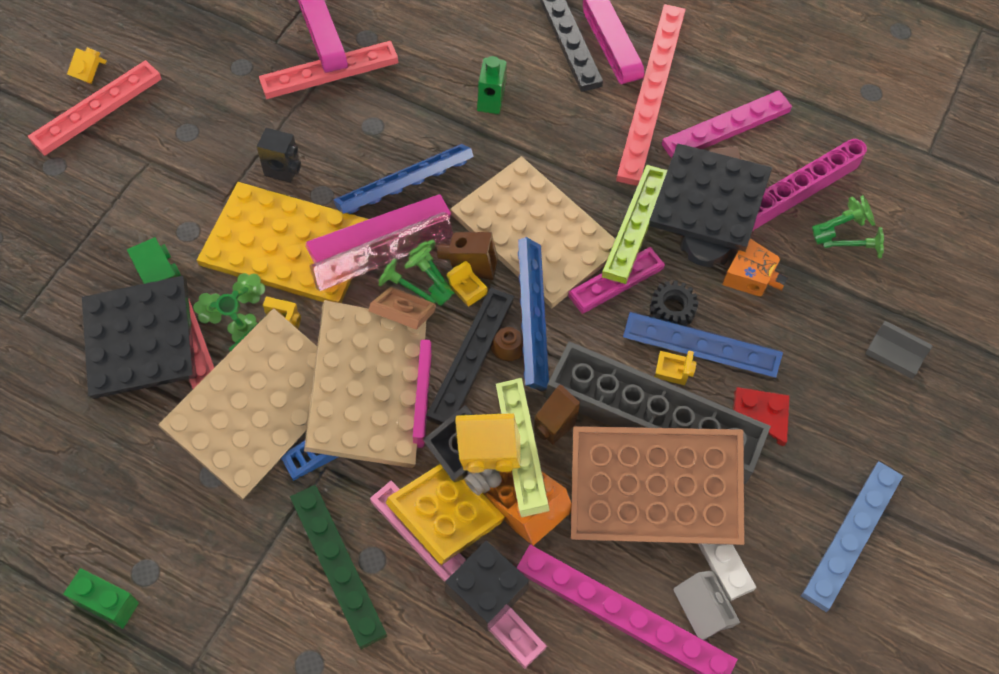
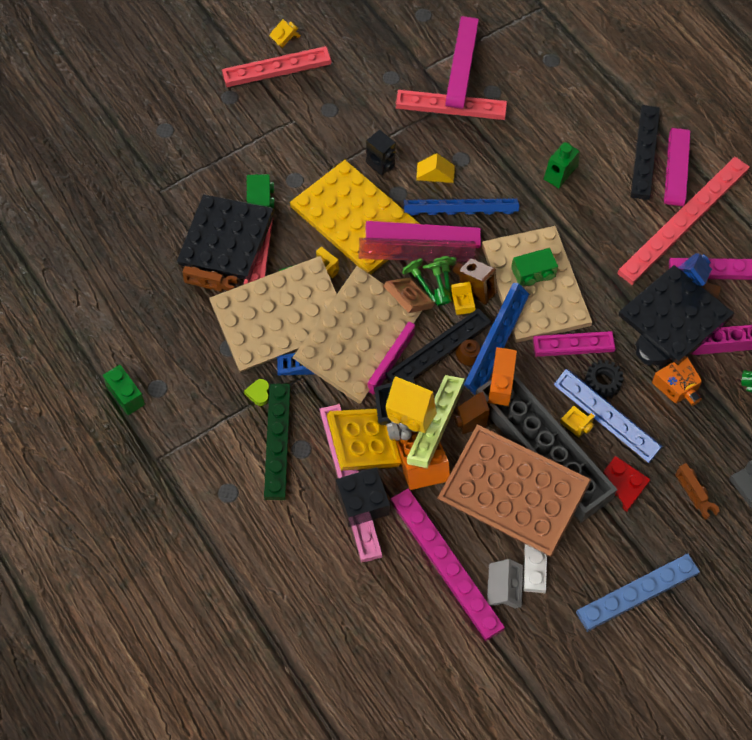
camera: 30 degrees right, 0 degrees up
(142, 401) = (206, 279): none -> dark orange plate
(213, 306) = (287, 239): bright green plant -> none
(280, 514) = (258, 392): none -> lime tile
(351, 149) = (435, 169): none -> yellow slope
(529, 211) = (534, 267): none -> green brick
(571, 355) = (502, 376): none -> orange slope
(634, 226) = (605, 312): lime plate -> none
(705, 136) = (697, 268): none -> blue slope
(844, 385) = (695, 491): none -> dark orange plate

